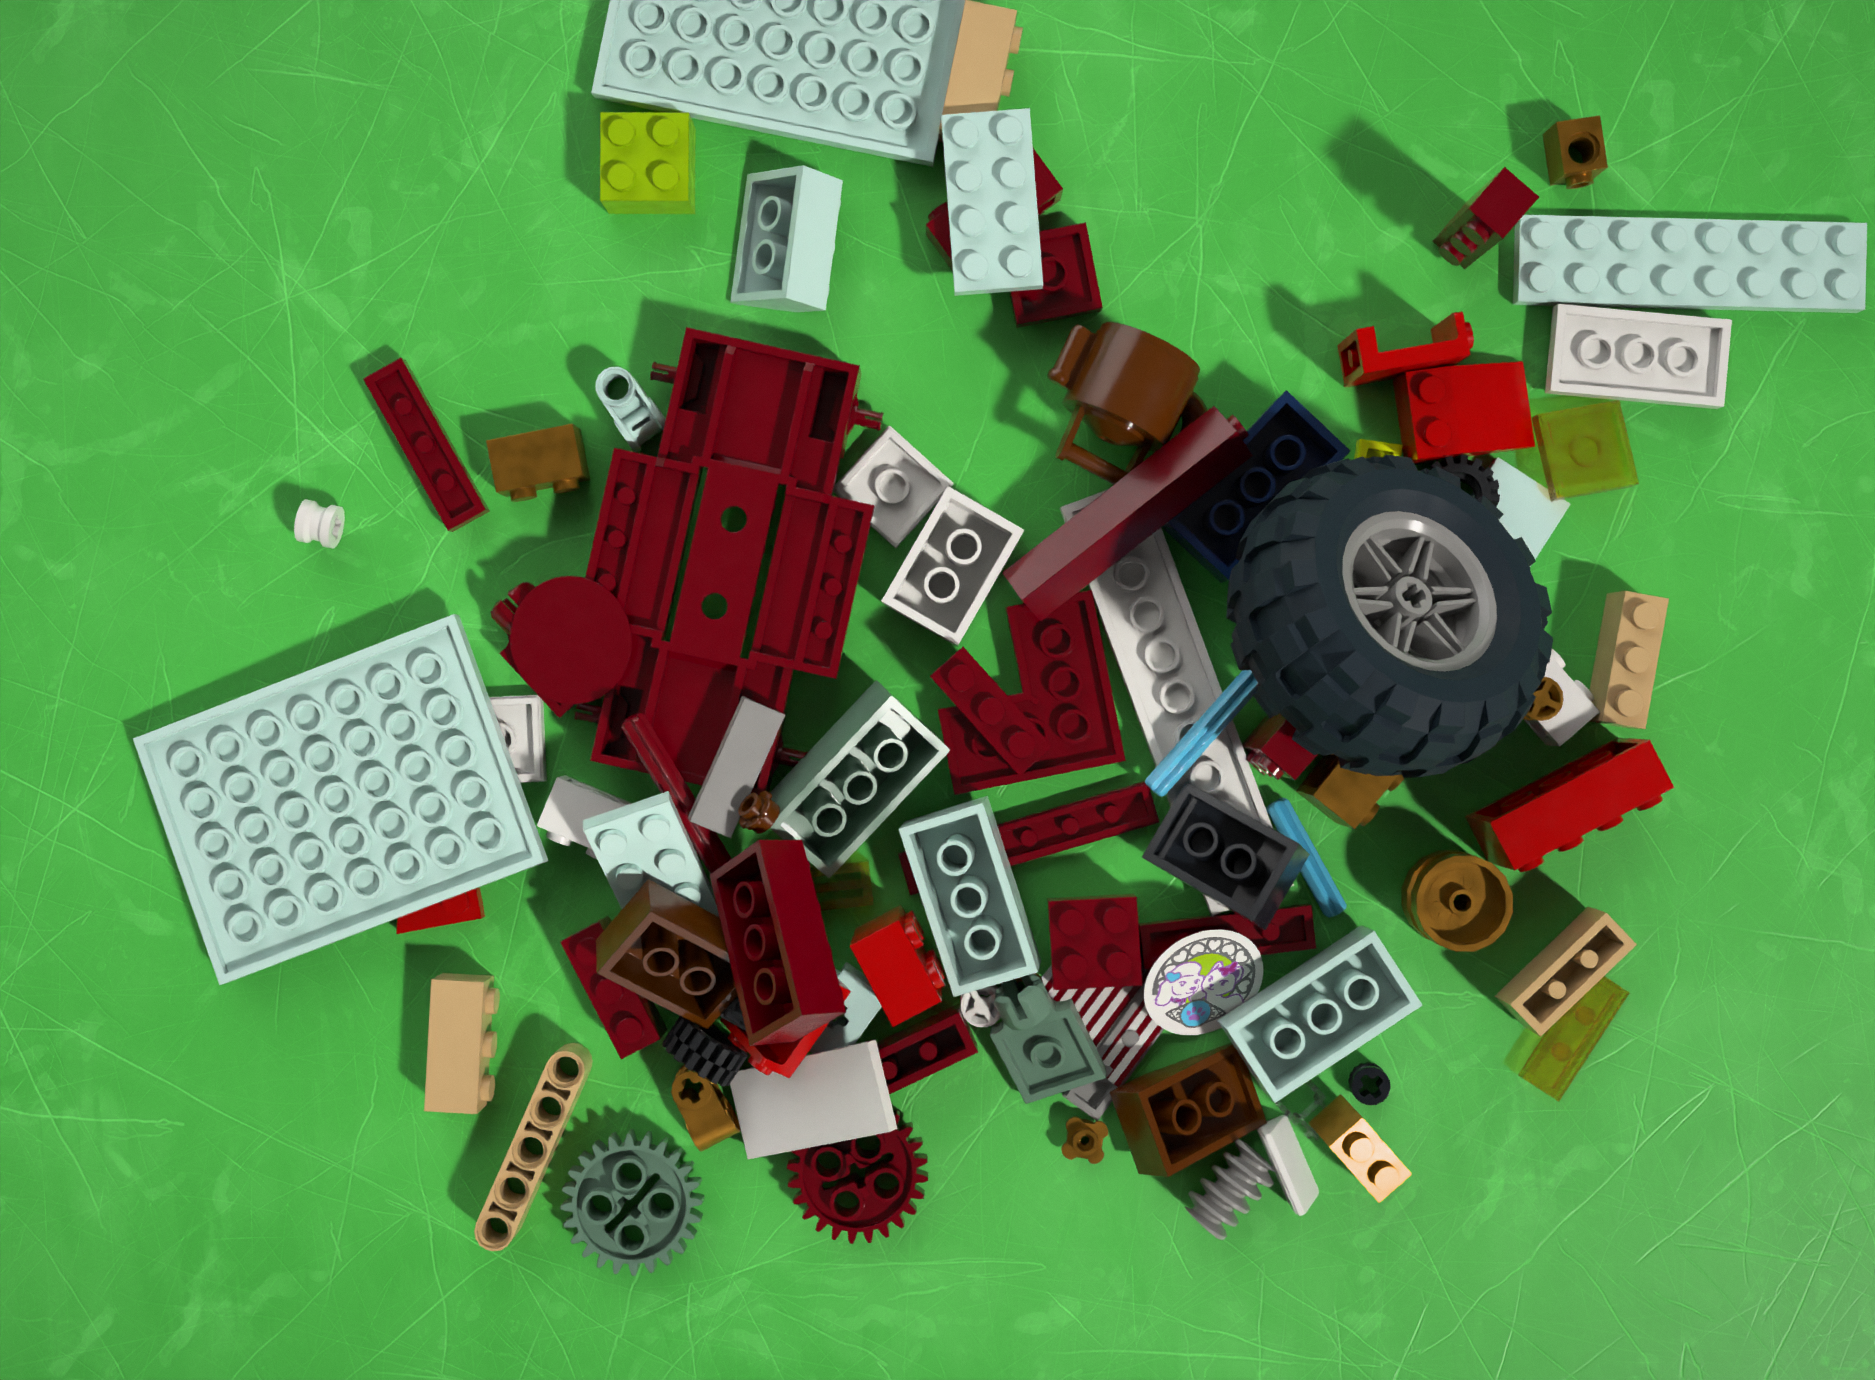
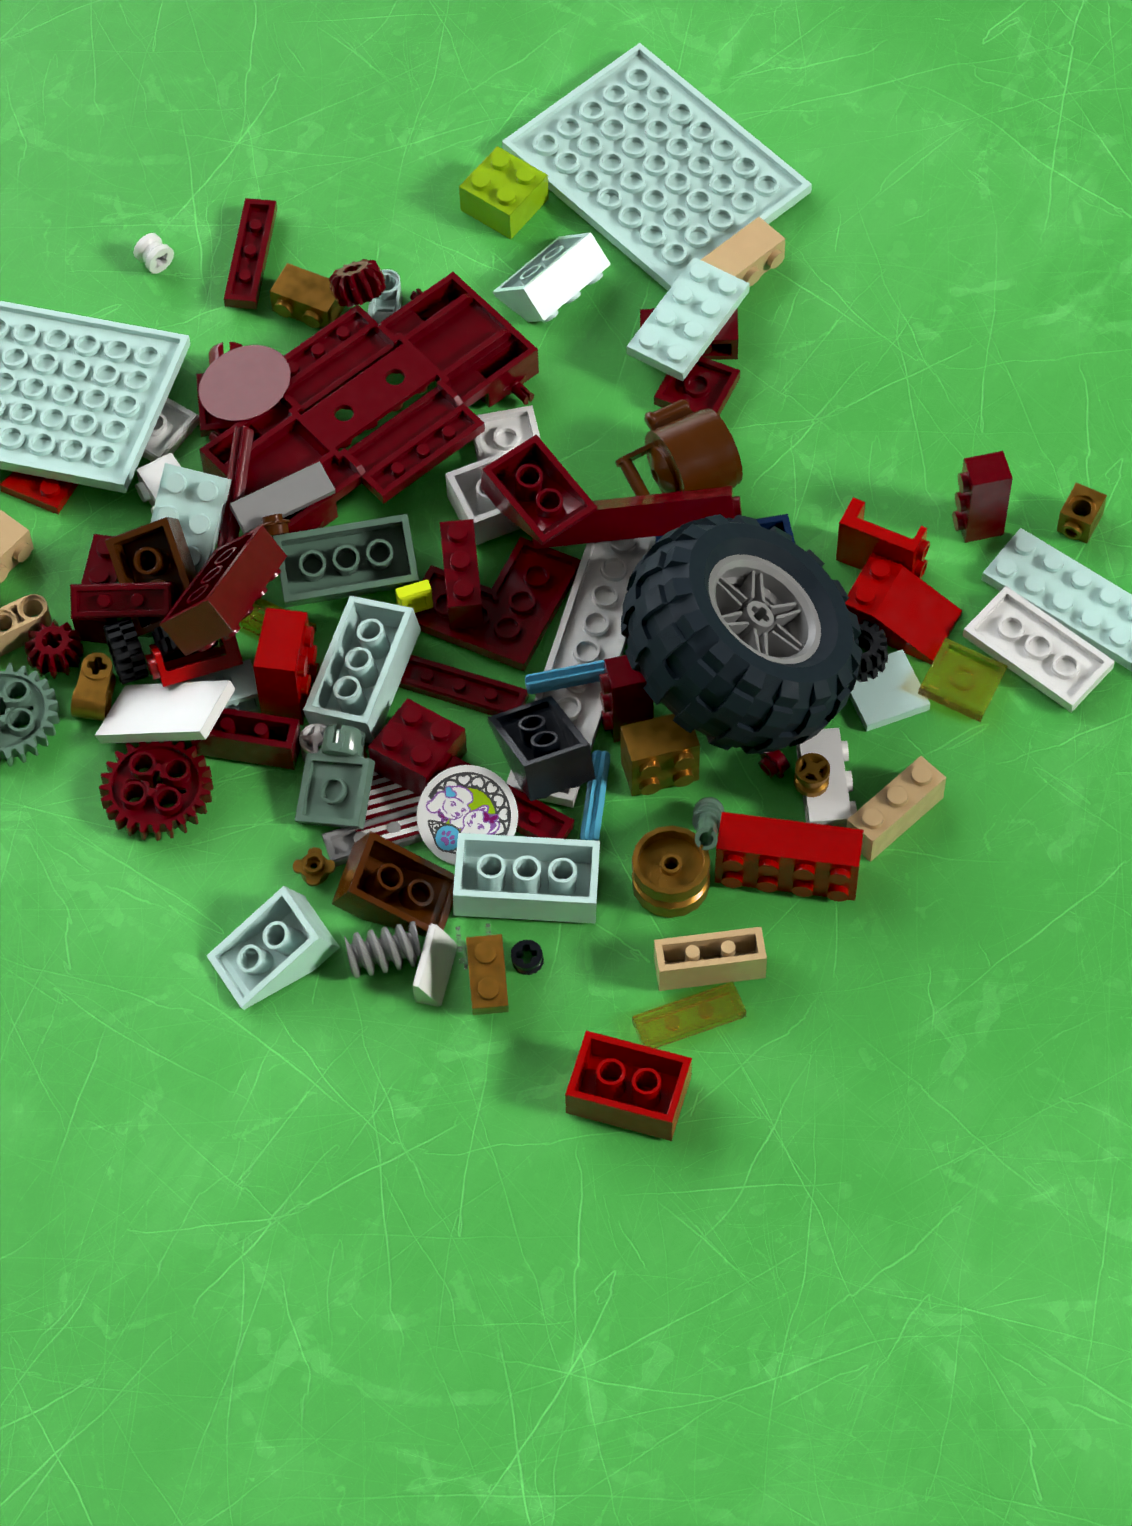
camera: 35 degrees right, 30 degrees down
(595, 423) = (357, 283): none -> dark red gear
(633, 1103) = (54, 649): none -> dark red gear
(666, 1016) = (121, 600): none -> dark red tile
(961, 774) = (415, 596): none -> neon yellow tile
(1020, 574) = (535, 491): none -> dark red slope
(1119, 1261) = (272, 948): none -> light aqua slope
(1458, 820) = (707, 821): none -> sand green pin
(1584, 1166) = (628, 1085): none -> red brick

